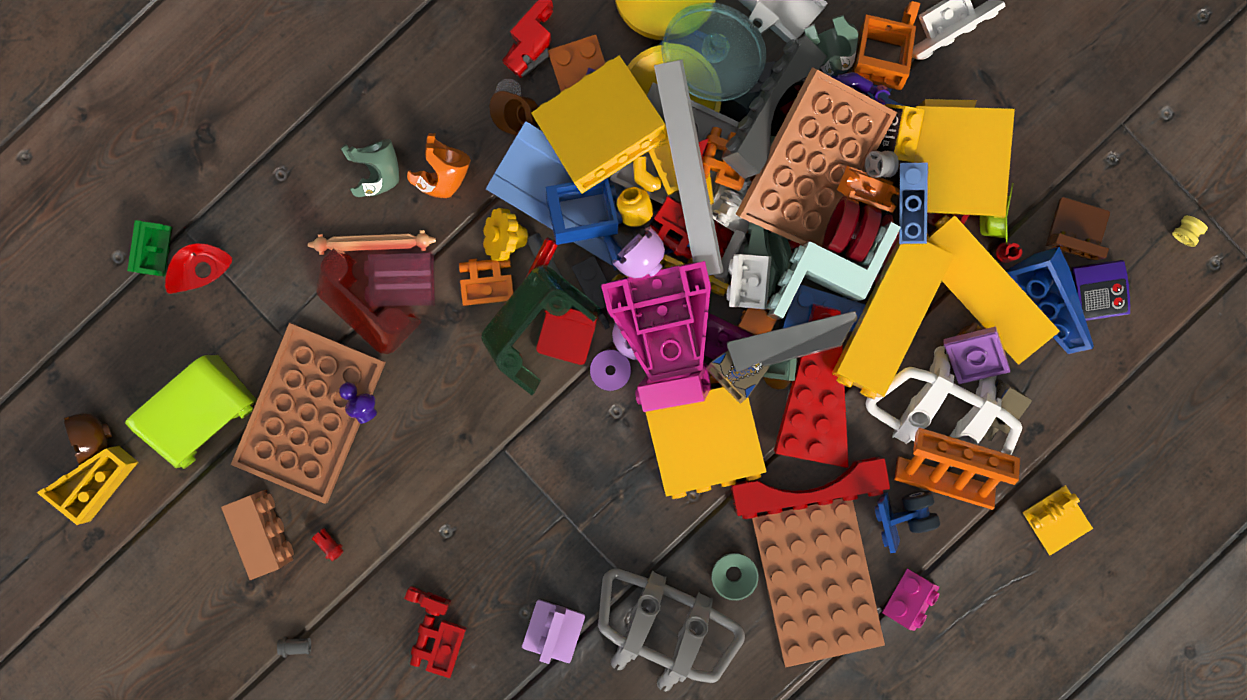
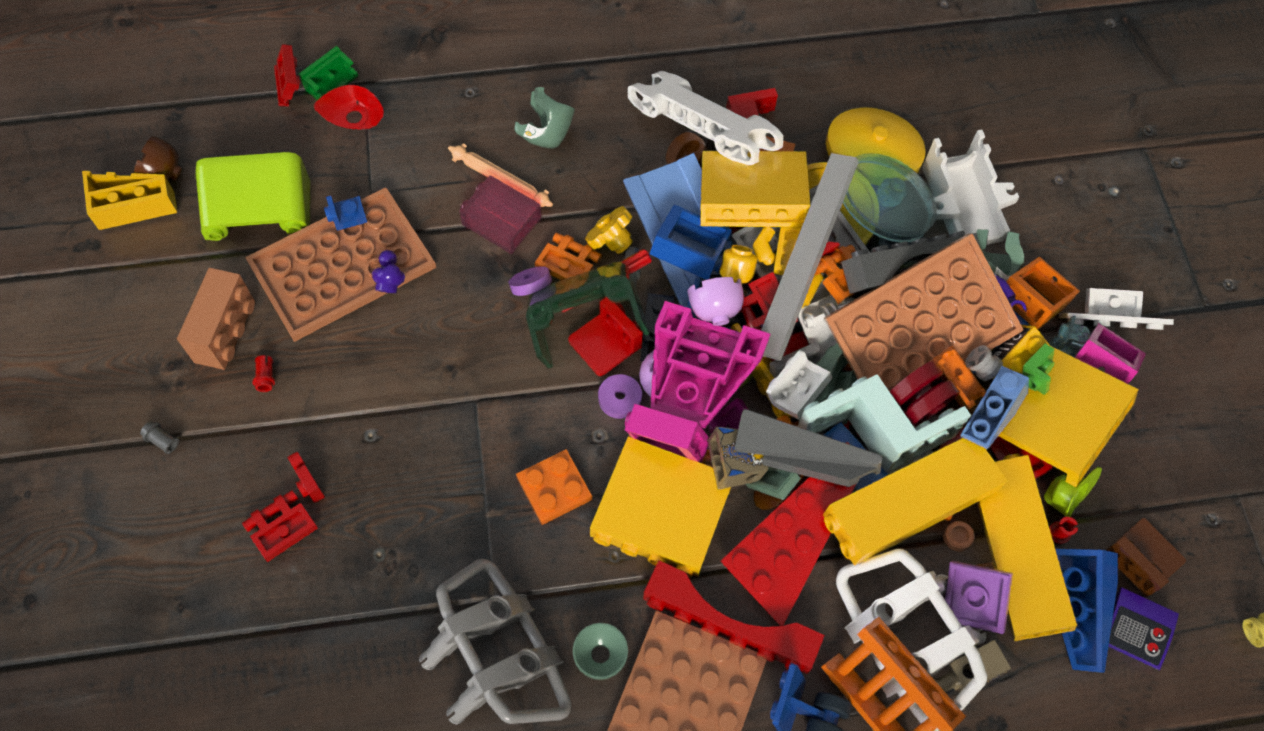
camera: 30 degrees right, 25 degrees down
(109, 271) = (285, 75): none -> red plate
(278, 372) = (345, 212): none -> blue bracket
(382, 332) = (456, 231): clear red windscreen -> none
(450, 169) = (601, 160): orange piece -> none
(472, 325) = (530, 281): none -> medium lavender piece
(547, 78) = (731, 132): none -> white piece
(553, 632) = (392, 586): lavender bracket -> none
(613, 477) = (554, 487): none -> orange plate
(910, 13) = (1083, 280): orange tile -> none
(927, 135) = (1038, 367): none -> bright green bracket
(930, 82) = (1070, 337): none -> clear light blue hinge
(937, 307) = (958, 536): none -> nougat tile
(958, 91) = (1111, 352): none -> dark pink window

